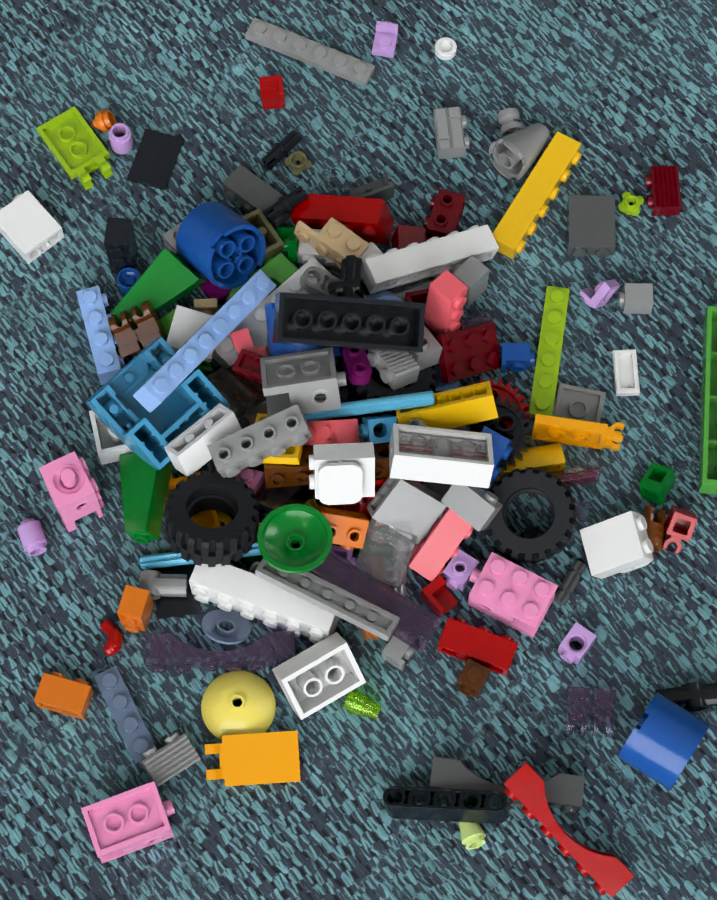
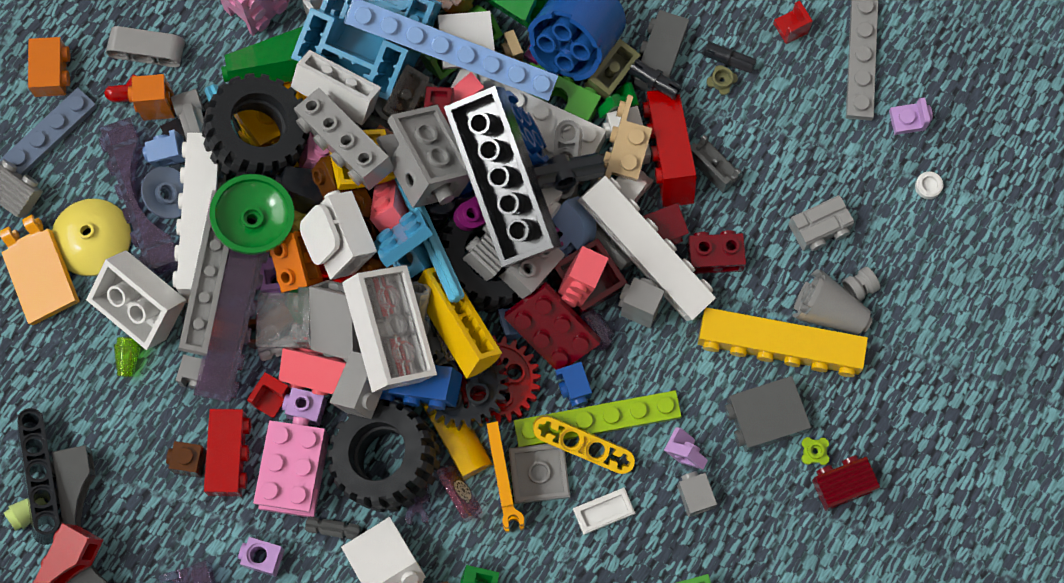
camera: 70 degrees right, 5 degrees up
(79, 606) = (145, 46): none -> light grey beam
(185, 617) = (164, 150): none -> medium blue brick
(369, 417) = (402, 238): none -> dark azure plate
(568, 365) = (584, 442): none -> yellow beam

